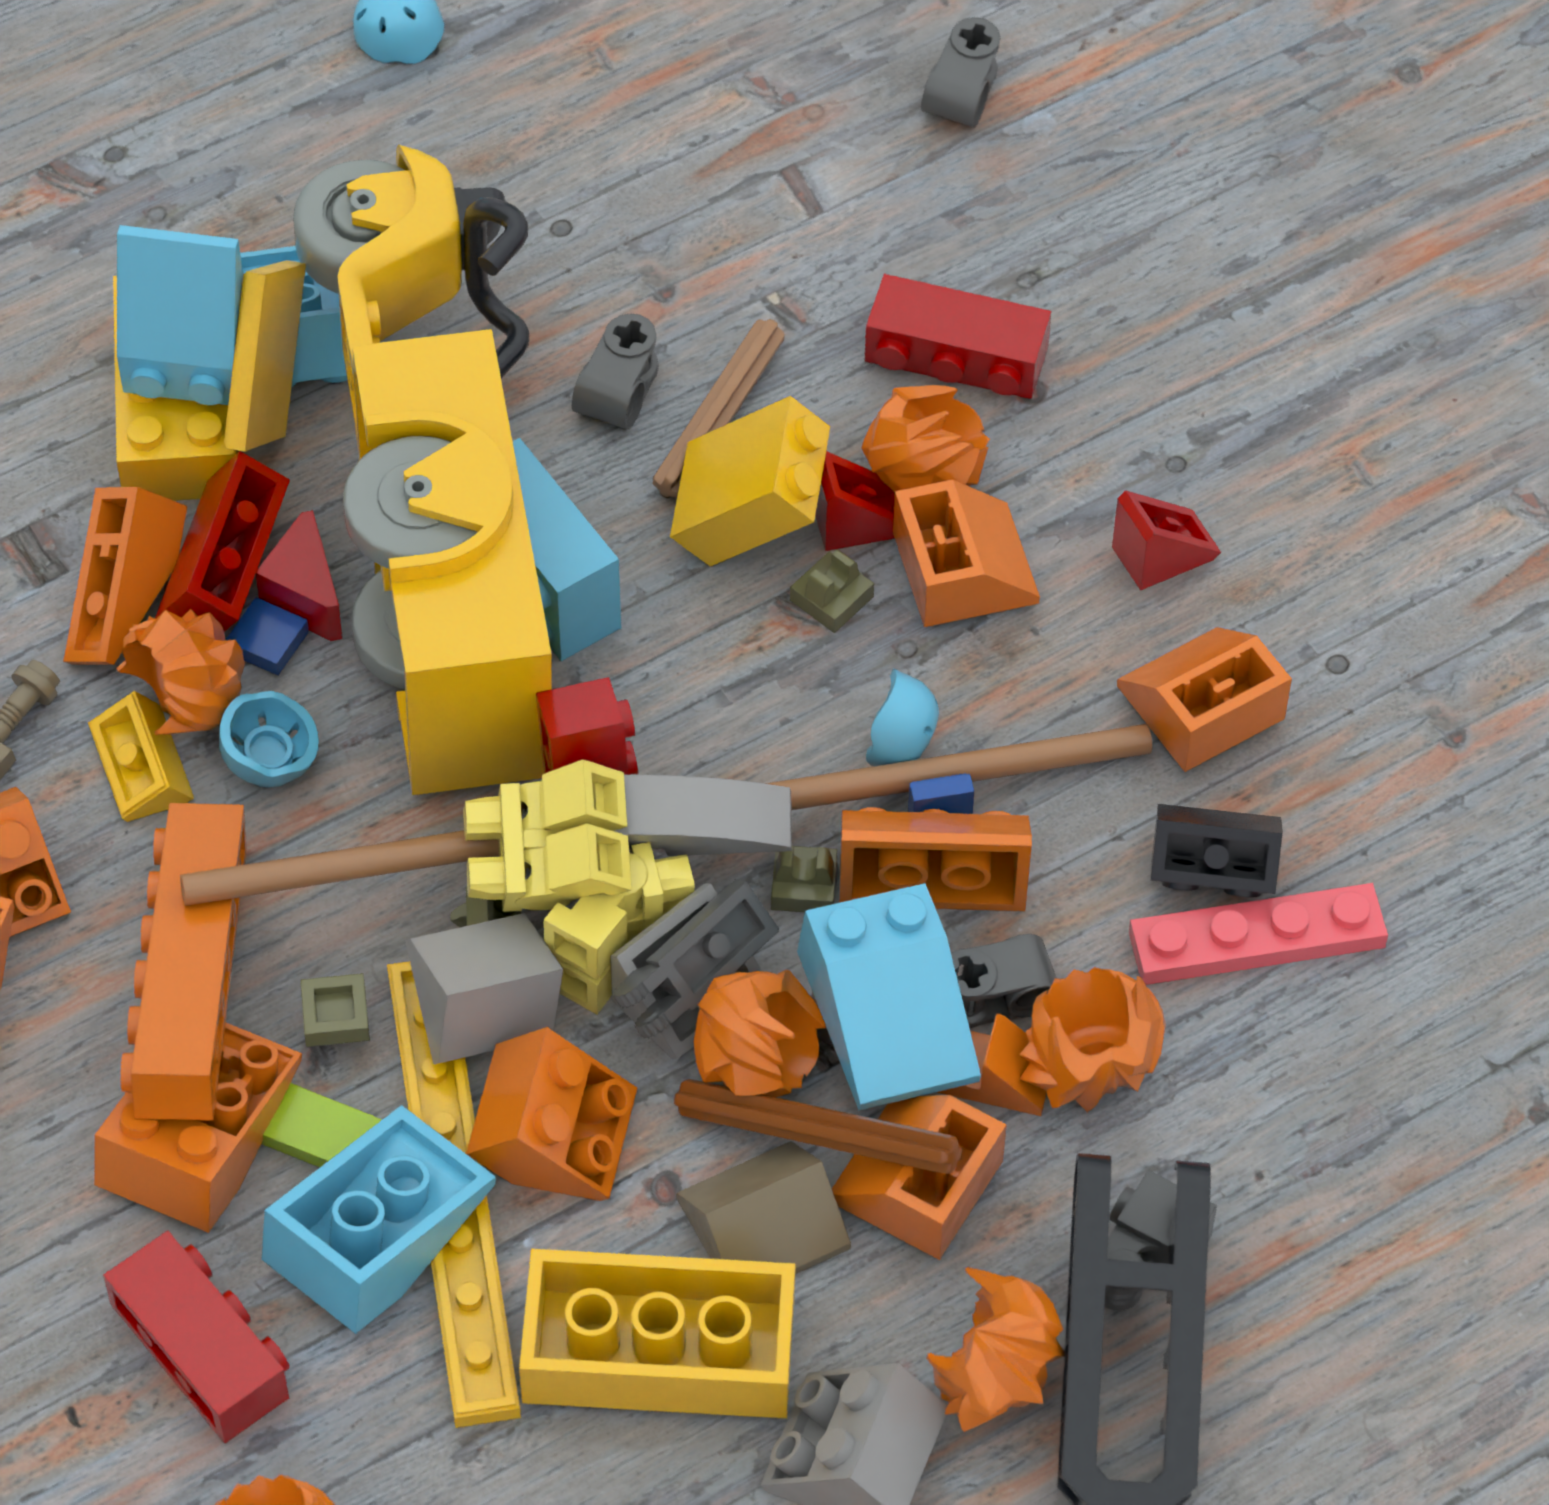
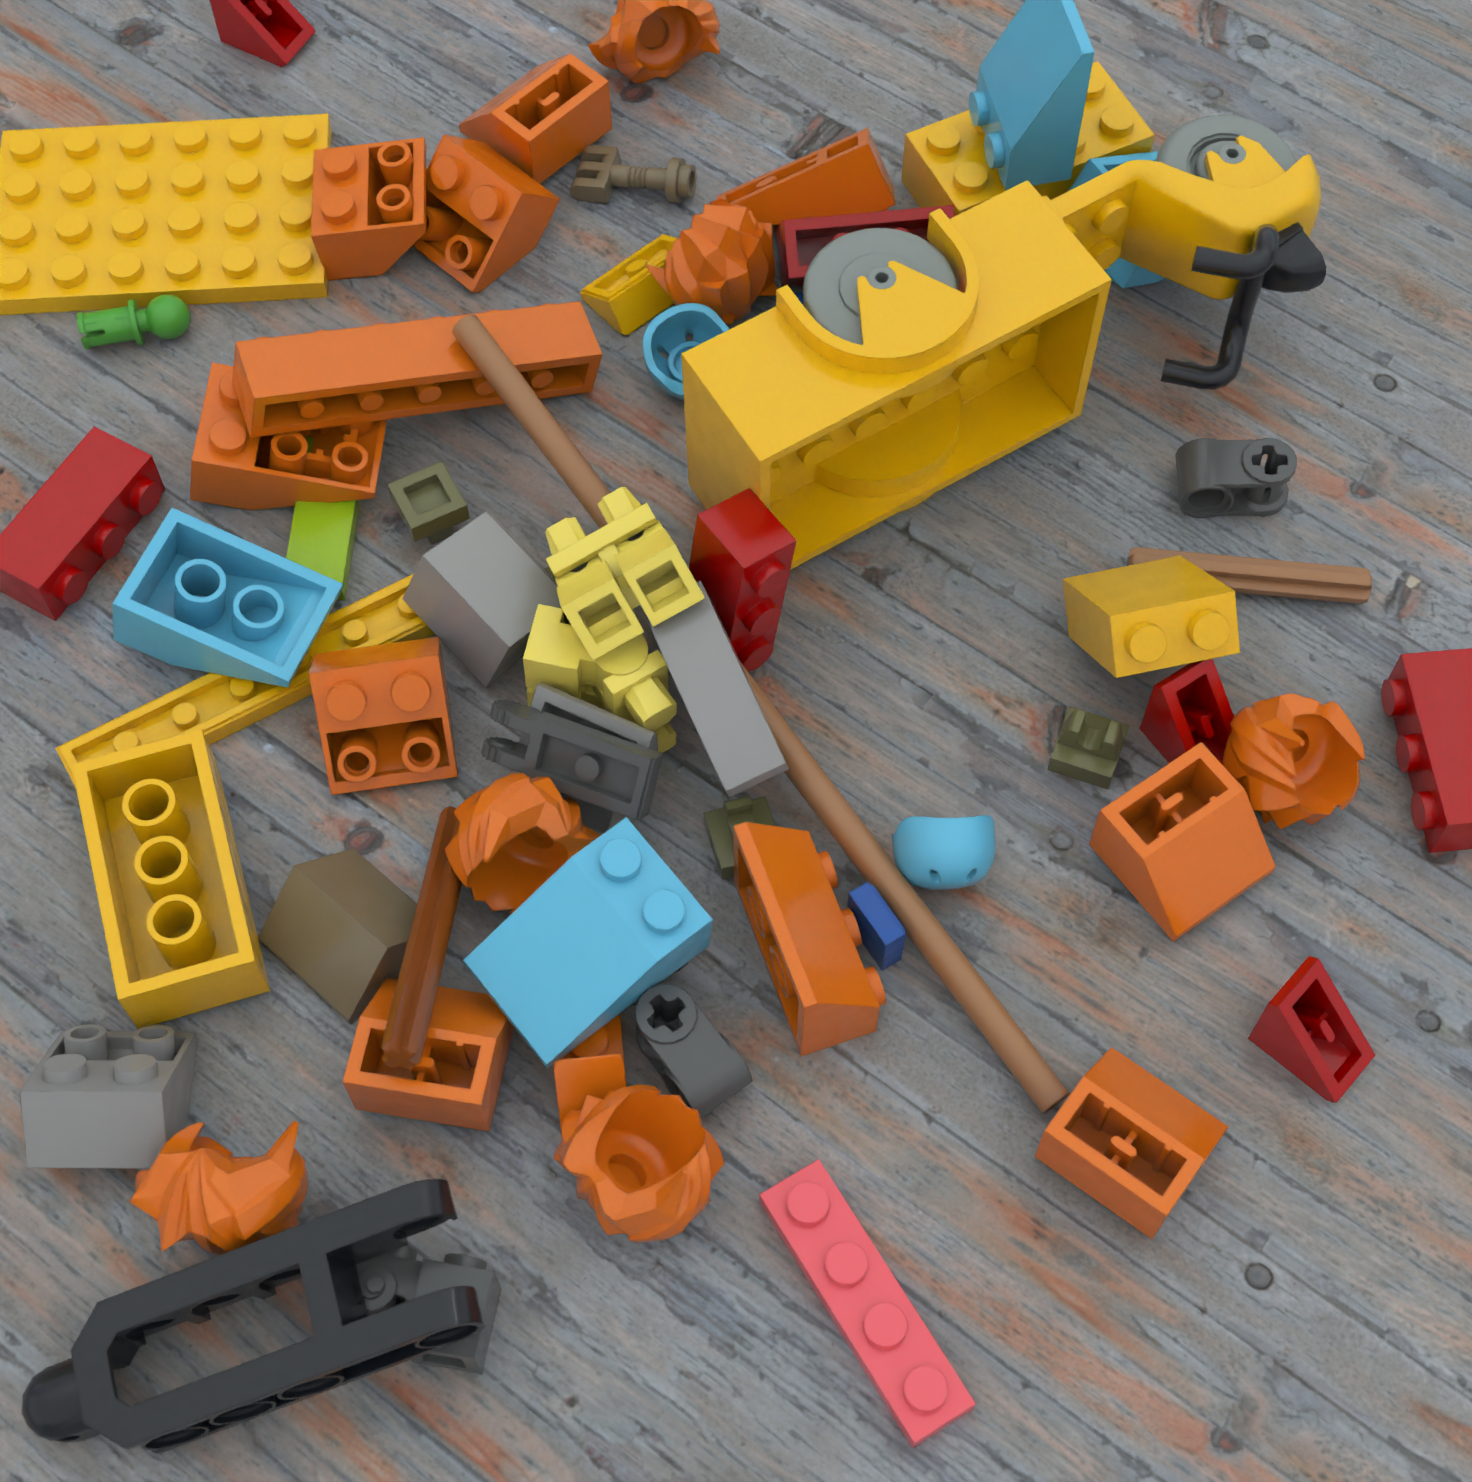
camera: 70 degrees right, 5 degrees up
(264, 355) = (1059, 153): yellow tile -> none
(571, 560) = (978, 487): medium azure slope -> none
(1216, 850) = (930, 1214): black brick -> none

